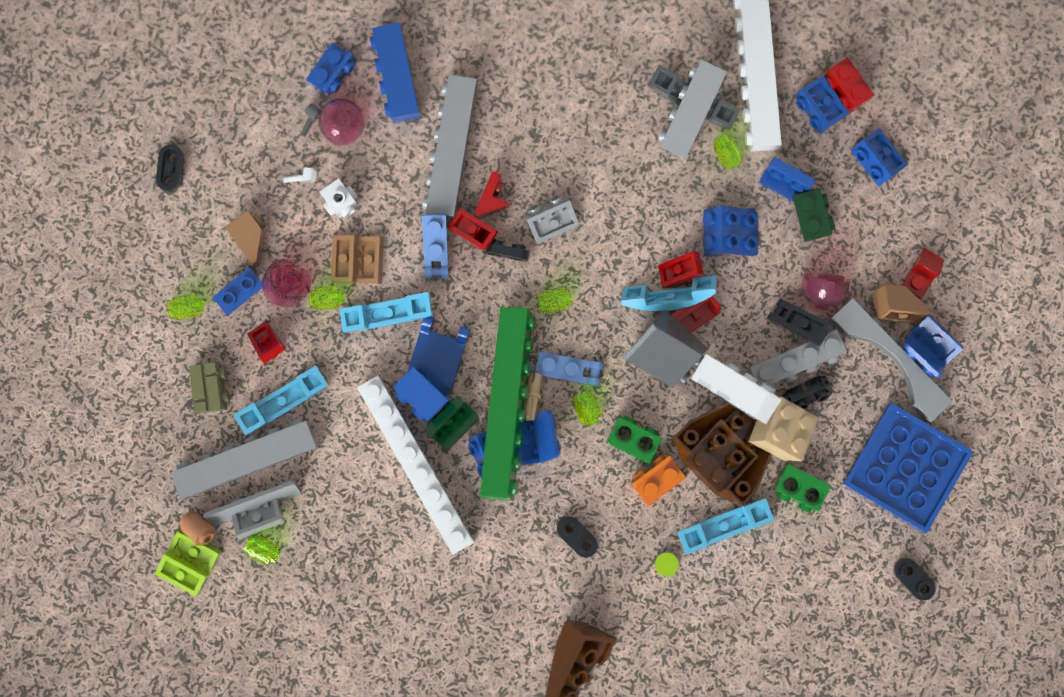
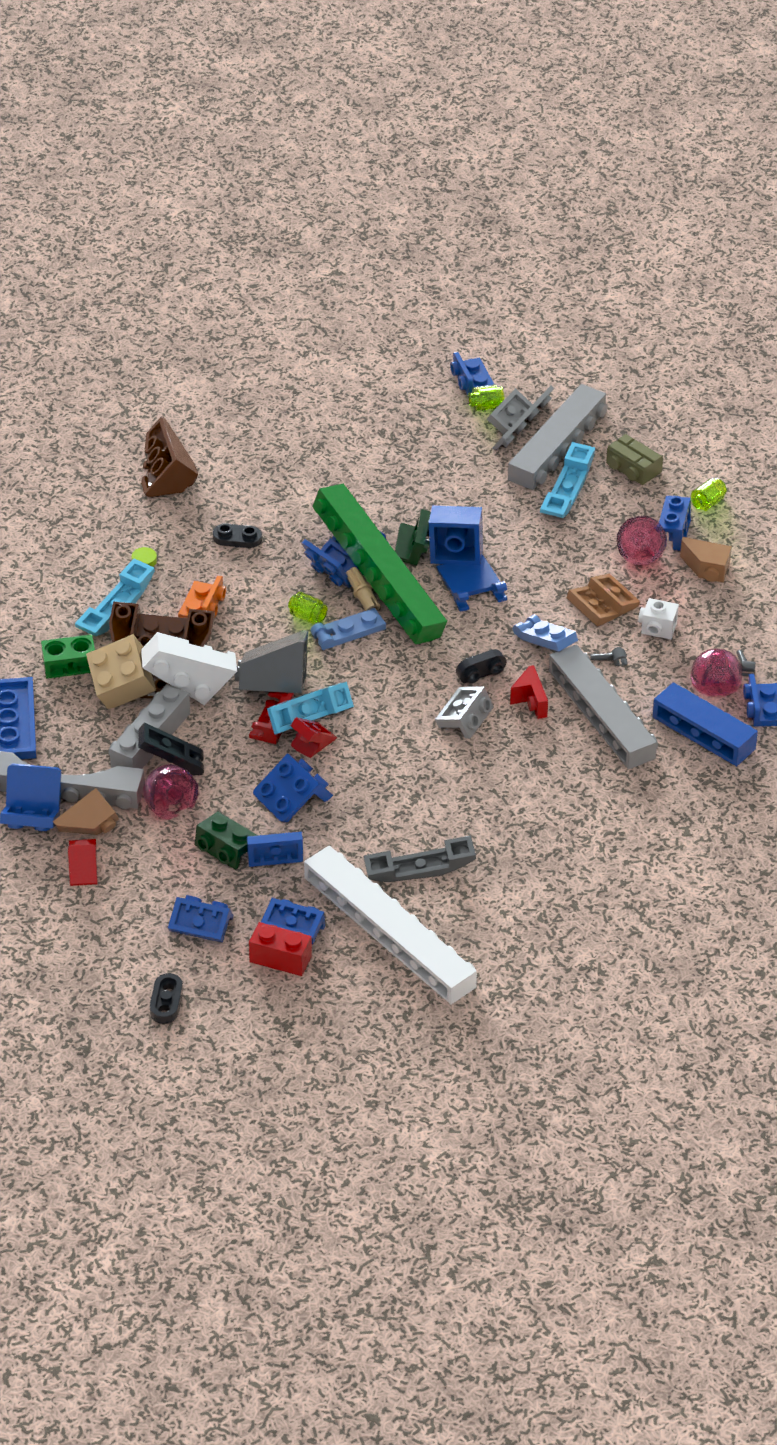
camera: 145 degrees right, 40 degrees down
(182, 571) = (537, 360): lime slope -> none
(197, 528) = (546, 377): nougat brick -> none
(248, 590) = (470, 373): none -> blue bracket
(266, 342) = (617, 504): red slope -> none
(308, 174) = (707, 625): white hand -> none
(326, 298) = (601, 558): clear neon green brick -> none
(386, 313) = (544, 578): medium azure slope -> none
(395, 191) = (616, 654): none -> dark grey hand
(416, 464) = (409, 497): white brick -> none
(472, 230) = (520, 655): red slope -> none
(554, 300) = (406, 659): clear neon green brick -> none
(631, 445) = (247, 609): green brick -> none
(692, 109) = (413, 839): light grey brick -> none
(727, 151) = (350, 840): clear neon green brick -> none
(818, 390) = (123, 713): black hinge -> none
(949, 104) = (166, 1000): none -> black plate

